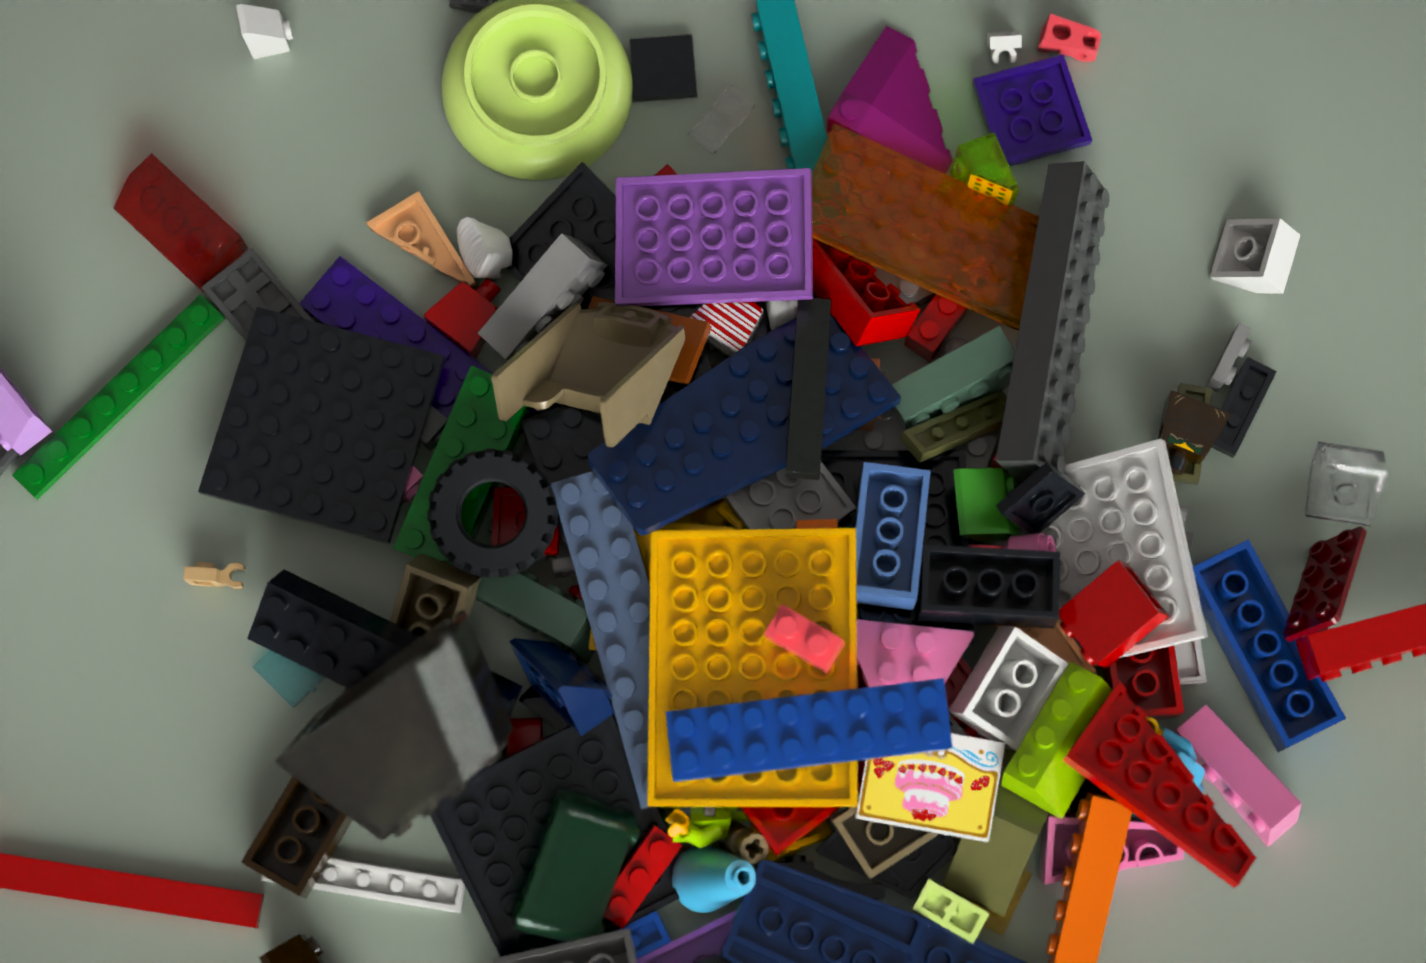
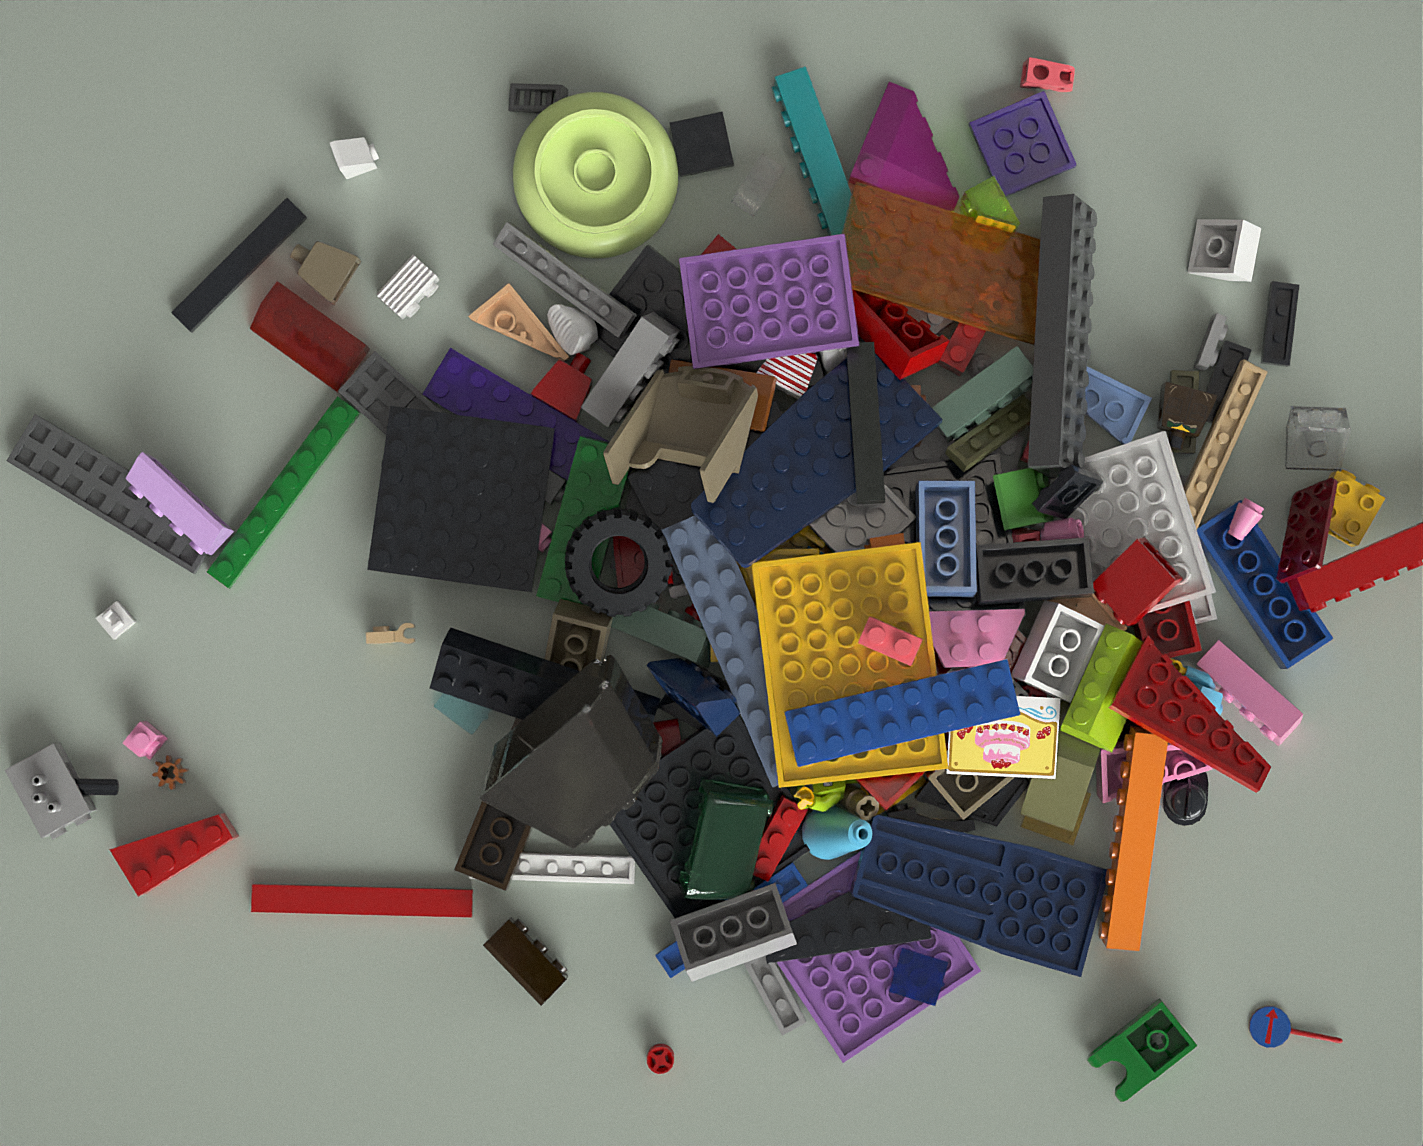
camera: 10 degrees left, 10 degrees up
(114, 136) = (239, 265): none -> black tile
(212, 151) = (325, 268): none -> dark tan torso
(302, 183) = (408, 288): none -> white brick
(482, 193) = (564, 279): none -> light grey plate
(951, 911) = (1030, 834): yellowish green hinge -> none
(1003, 41) = (991, 84): white tile -> none
(1107, 414) = (1115, 405): none -> light blue wing
(1148, 895) = (1186, 799): none -> black piece
(1233, 465) = (1222, 437): none -> tan tile
(1251, 560) = (1245, 518): none -> bright pink cone
(1313, 347) = (1280, 324): none -> black plate
(1381, 569) = (1353, 508): none -> yellow brick

